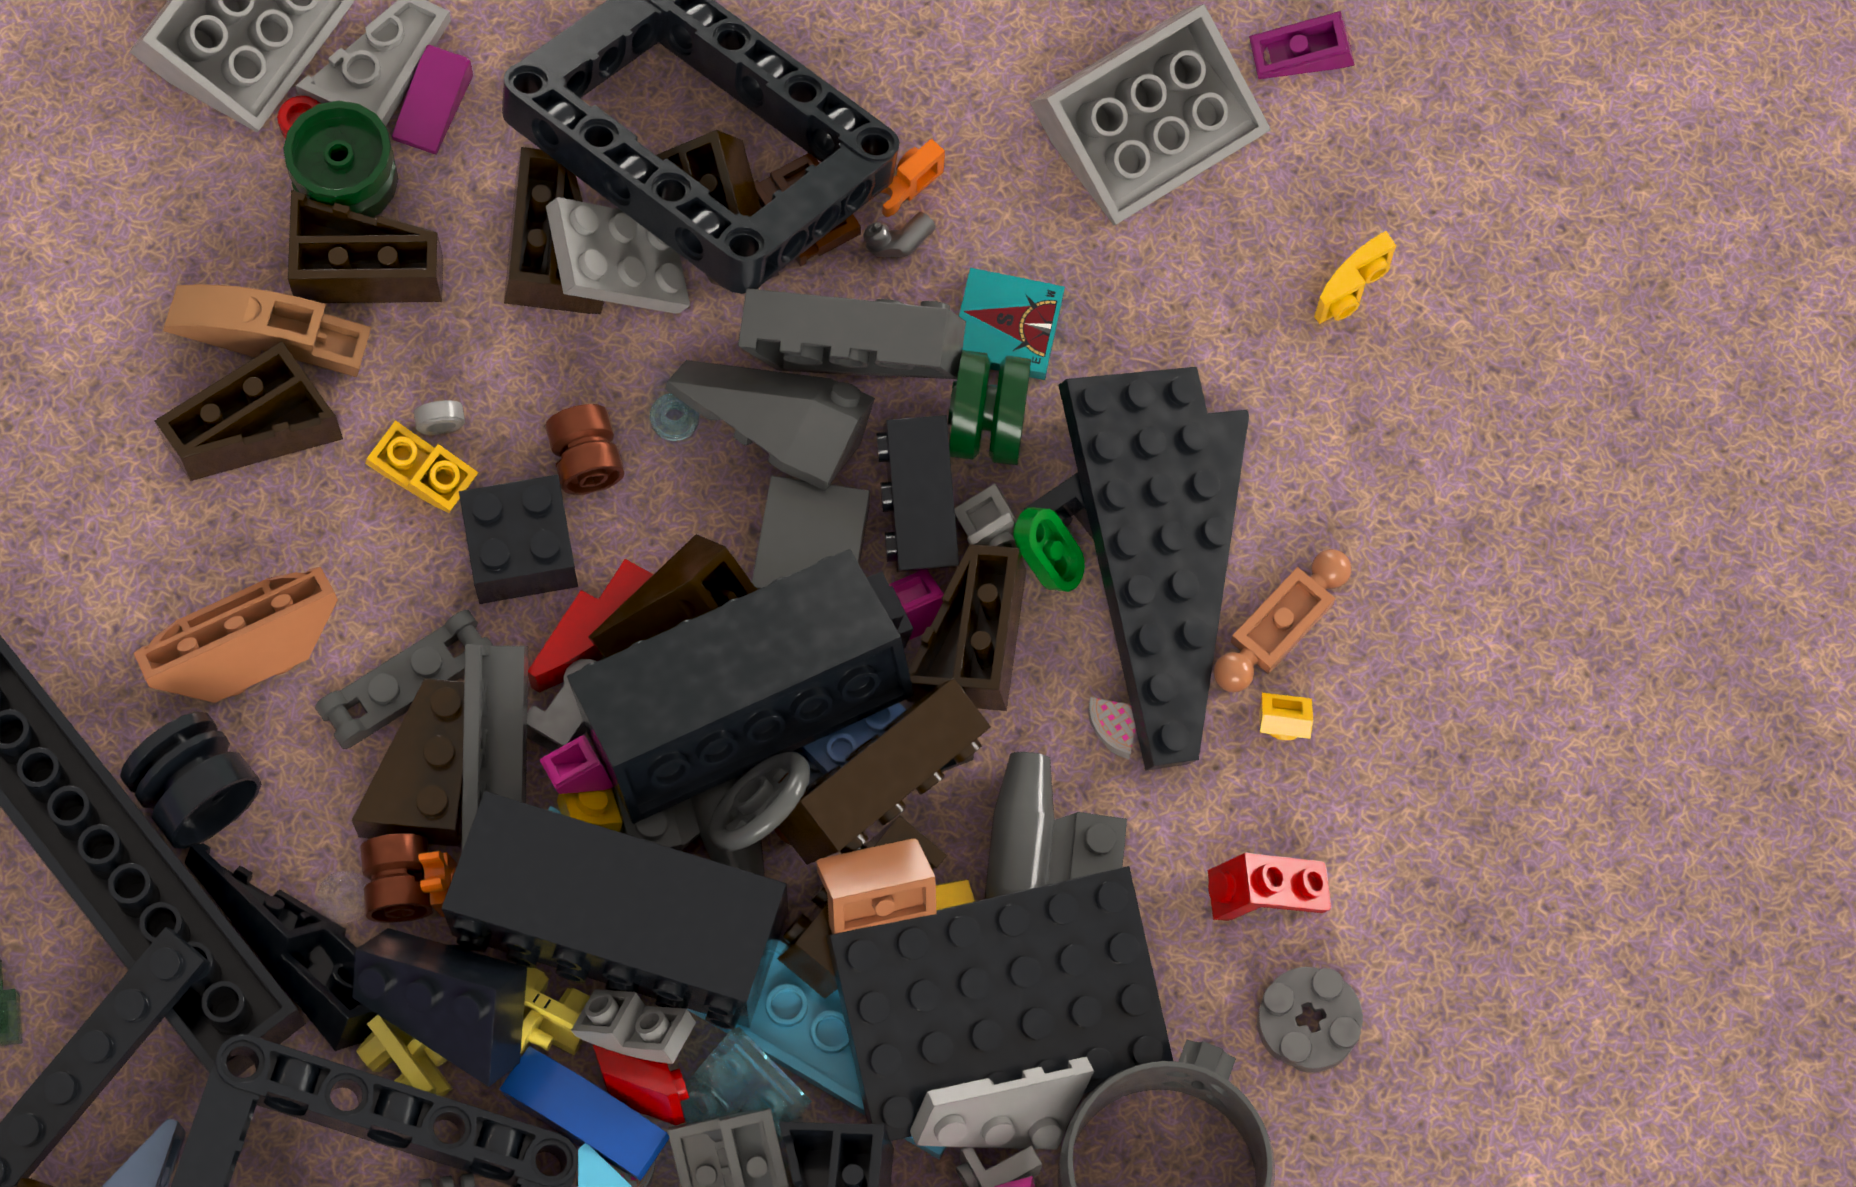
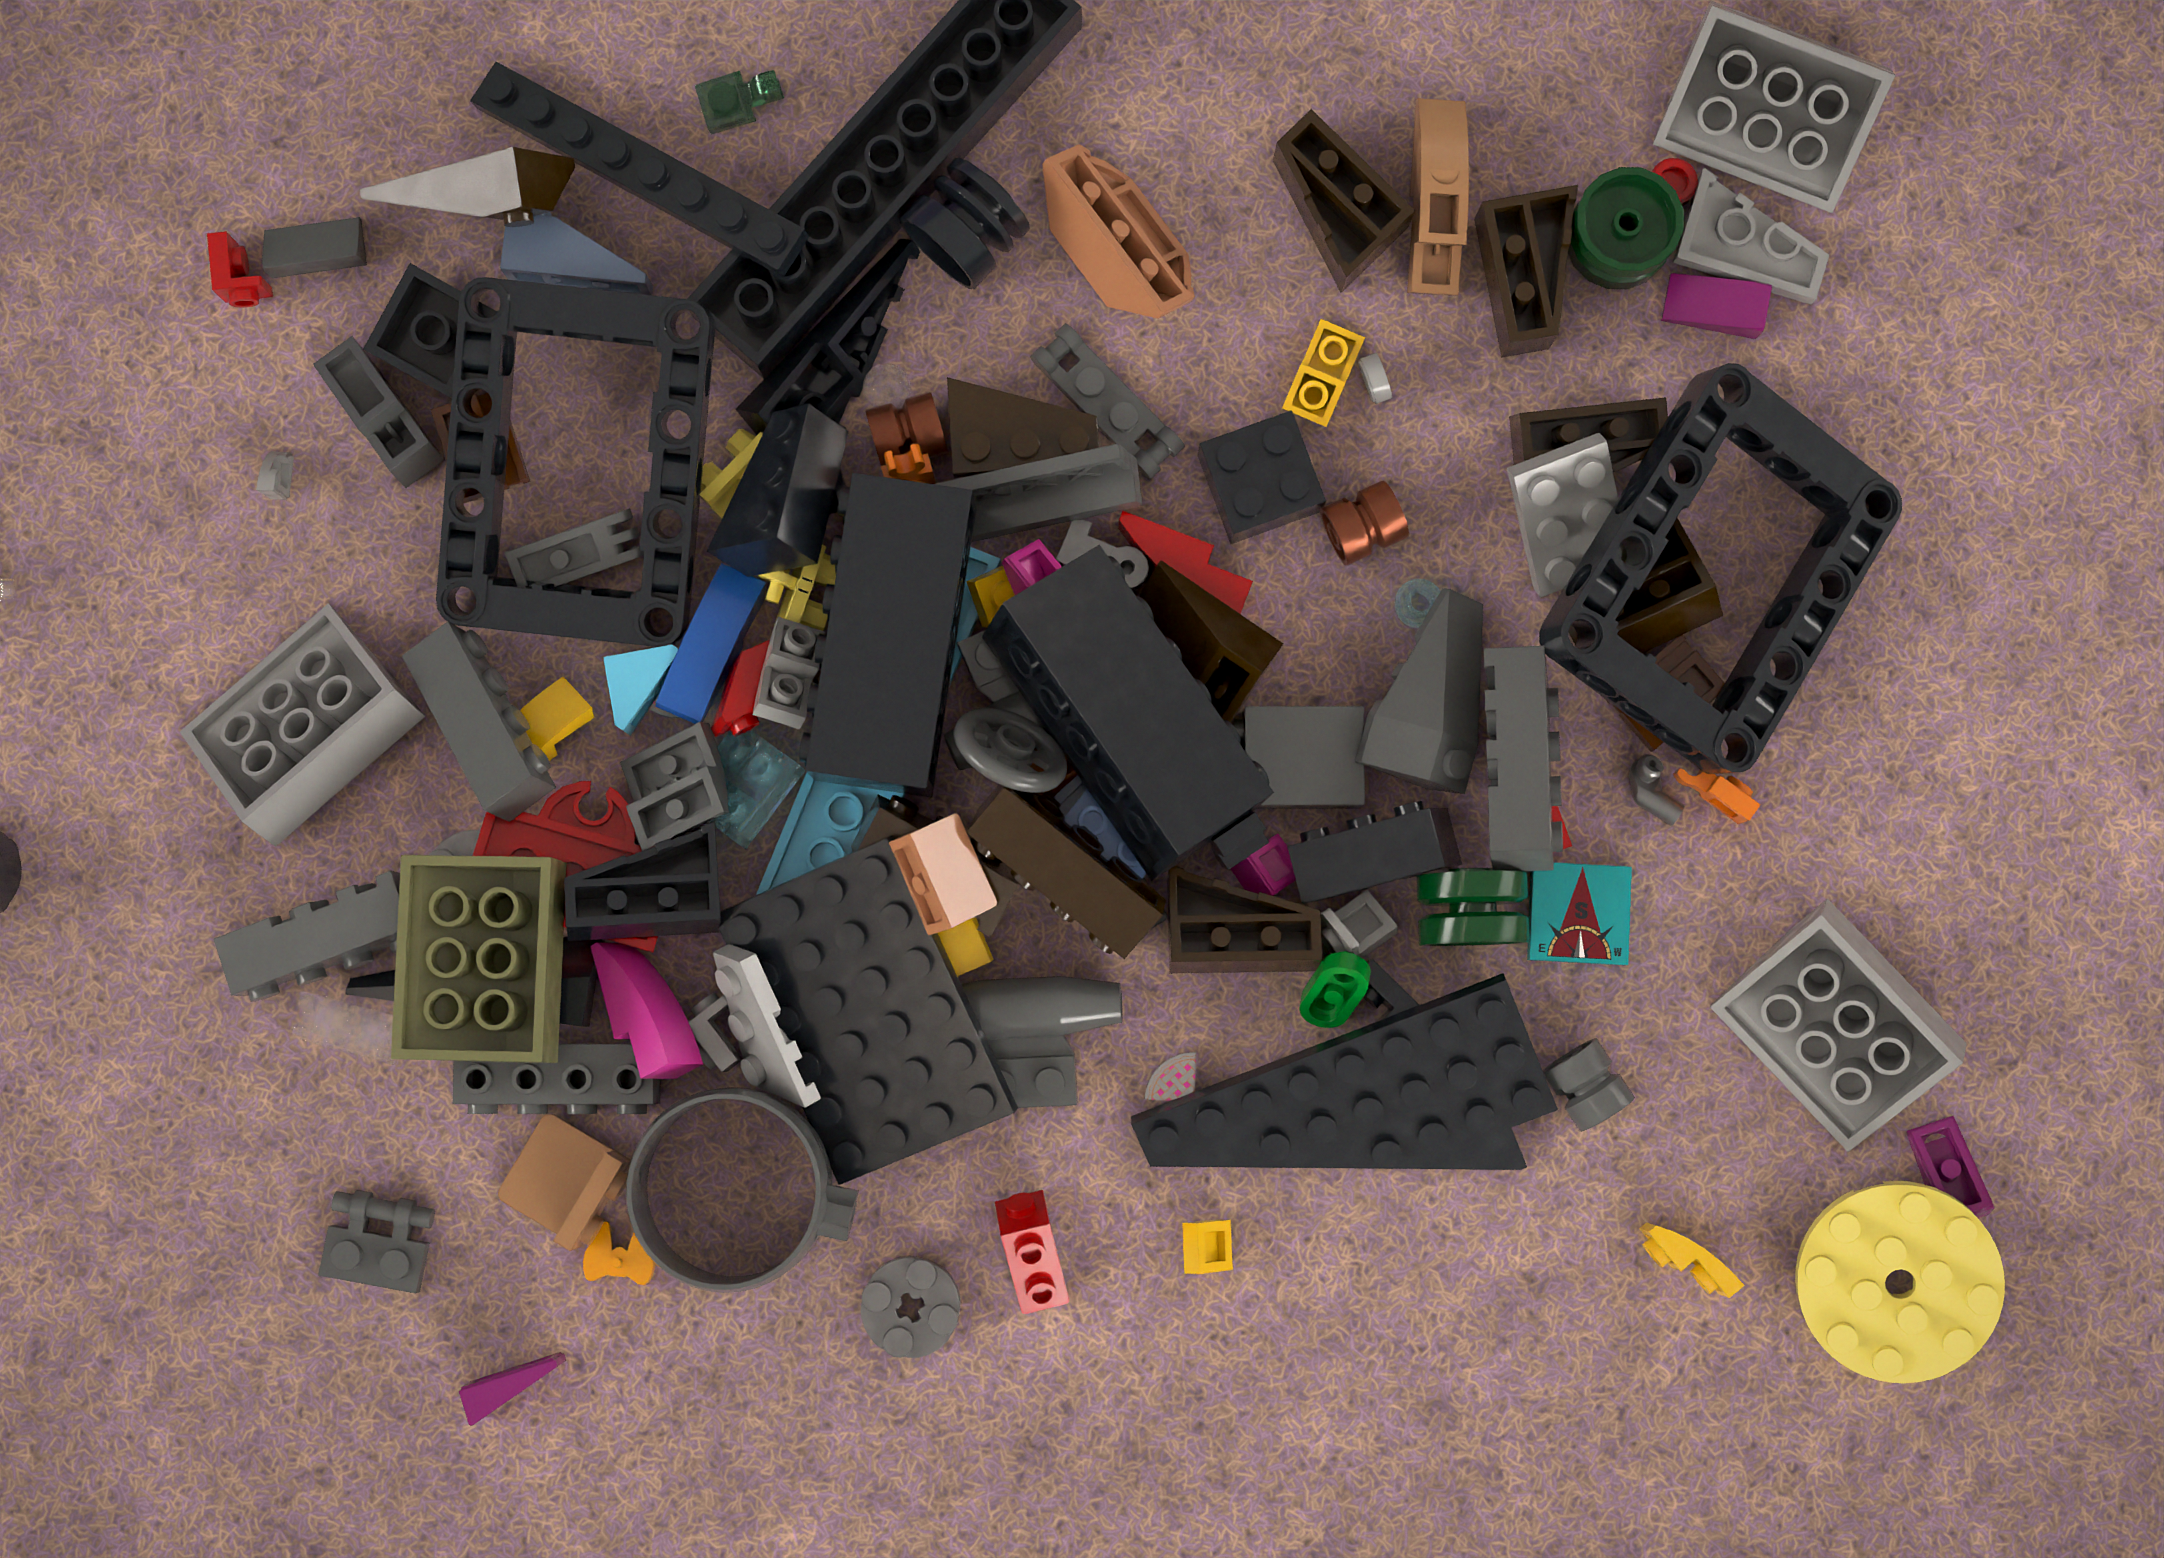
camera: 85 degrees right, 15 degrees up
(1181, 336) = (1588, 1085): none -> dark grey wheel
(1282, 620) = (1307, 1231): nougat plate -> none
(1360, 131) = (1911, 1333): none -> light yellow plate

